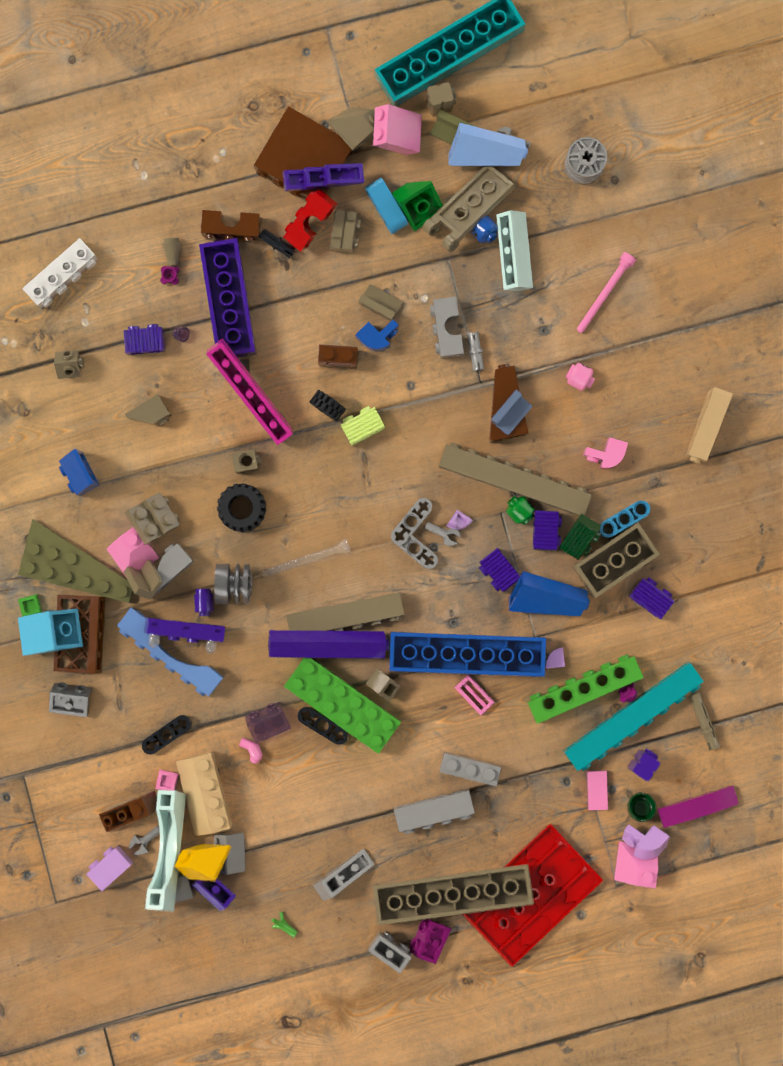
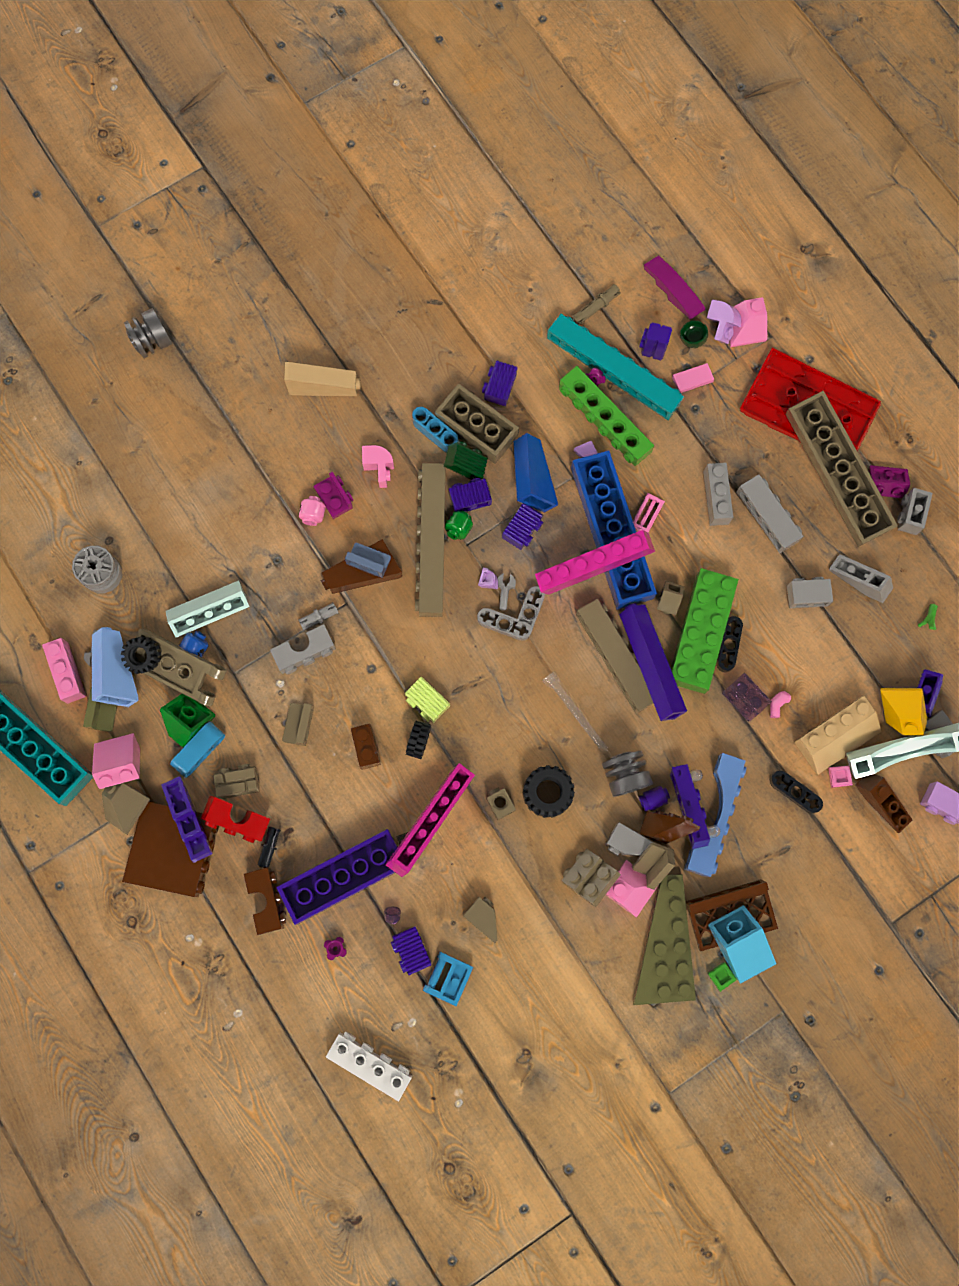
camera: 115 degrees left, 10 degrees down
(68, 364) = (462, 1022): dark tan brick -> none
(69, 699) = (799, 901): dark grey bracket -> none
(78, 472) = (571, 972): blue slope -> none
(105, 369) = (454, 982): none -> dark azure plate
(144, 840) = (906, 779): light grey bar -> none
(172, 250) = (308, 954): dark tan cone -> none
(173, 600) = (666, 827): none -> reddish brown slope
(236, 858) = (873, 688): light grey panel -> none
(344, 818) = (809, 593): none -> light grey brick
(375, 340) = (337, 717): blue brick -> none
(436, 622) = (595, 562): none -> dark pink brick
(441, 98) = (72, 729): dark tan brick -> none
(485, 169) = (130, 655): none -> black tyre
(499, 106) = (64, 670): none -> bright pink brick
(589, 401) = (334, 496): none -> magenta bracket
(626, 262) = (186, 503): bright pink piece -> none

